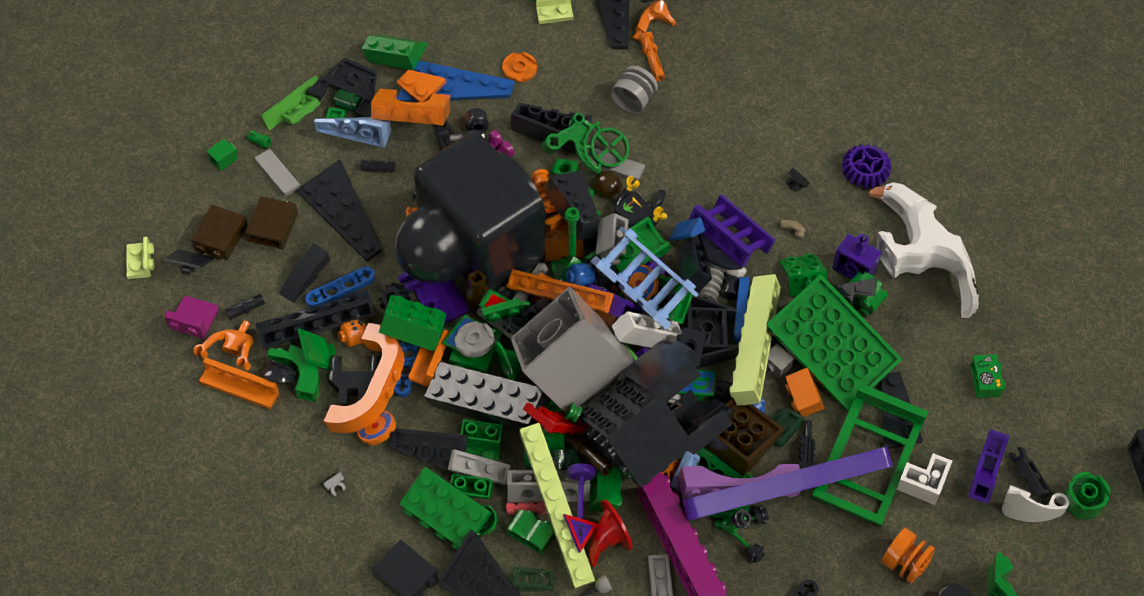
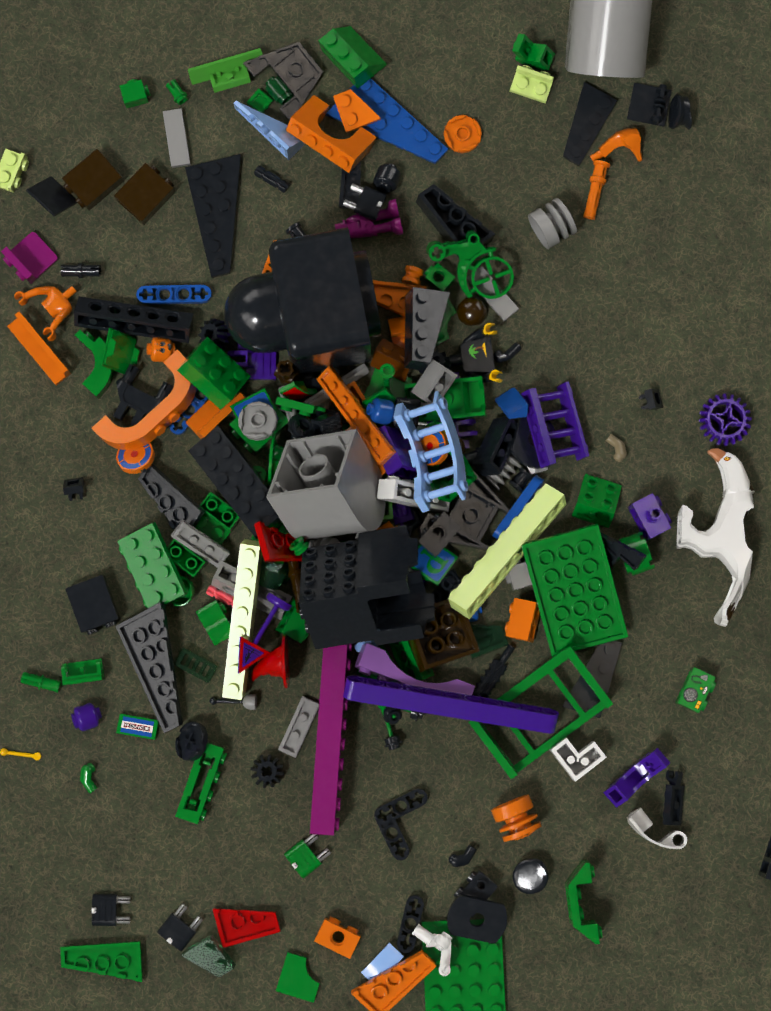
camera: 30 degrees right, 25 degrees up
(278, 372) = (76, 358): black piece -> none
(305, 272) = (148, 264): black slope -> none
(1087, 495) = (711, 856): green brick -> none

